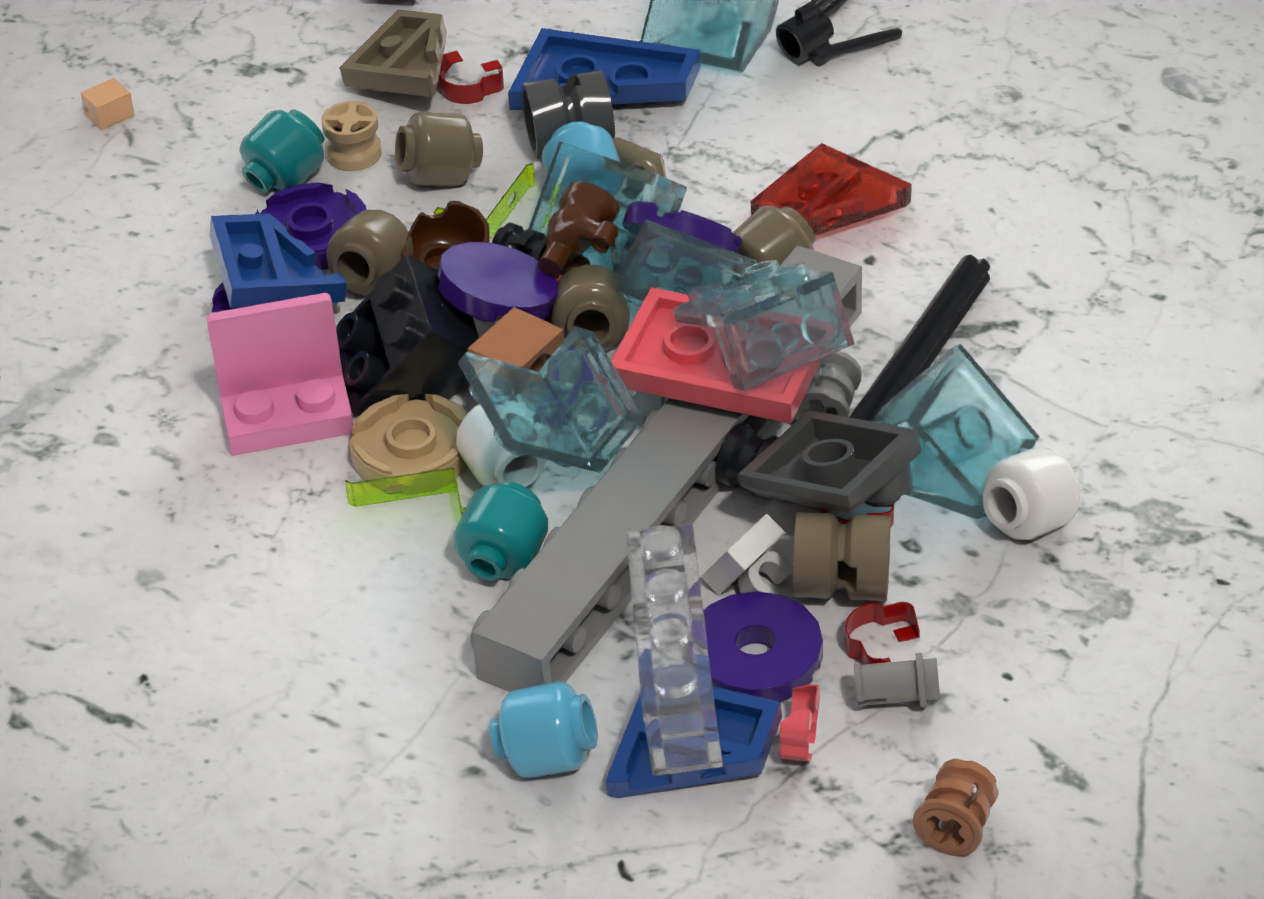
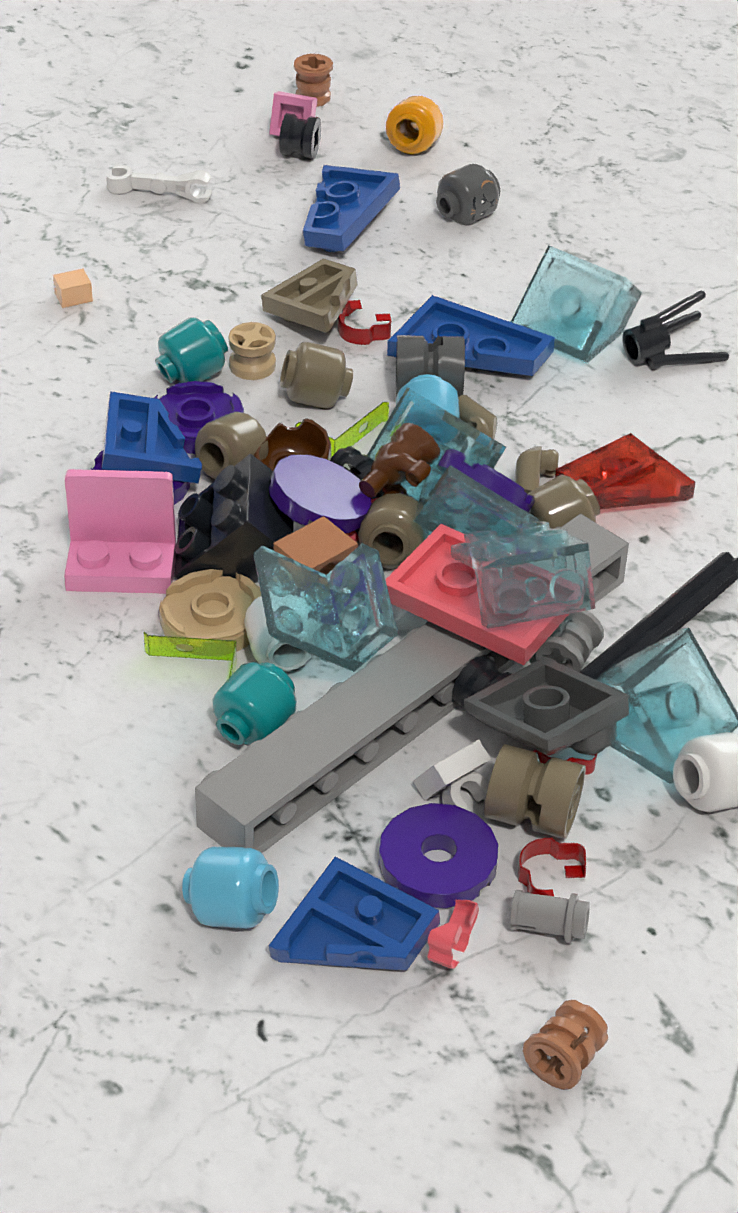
camera: 10 degrees right, 0 degrees up
(673, 650) = (349, 861): clear arch -> none
(723, 199) = (532, 464): none -> dark tan arm

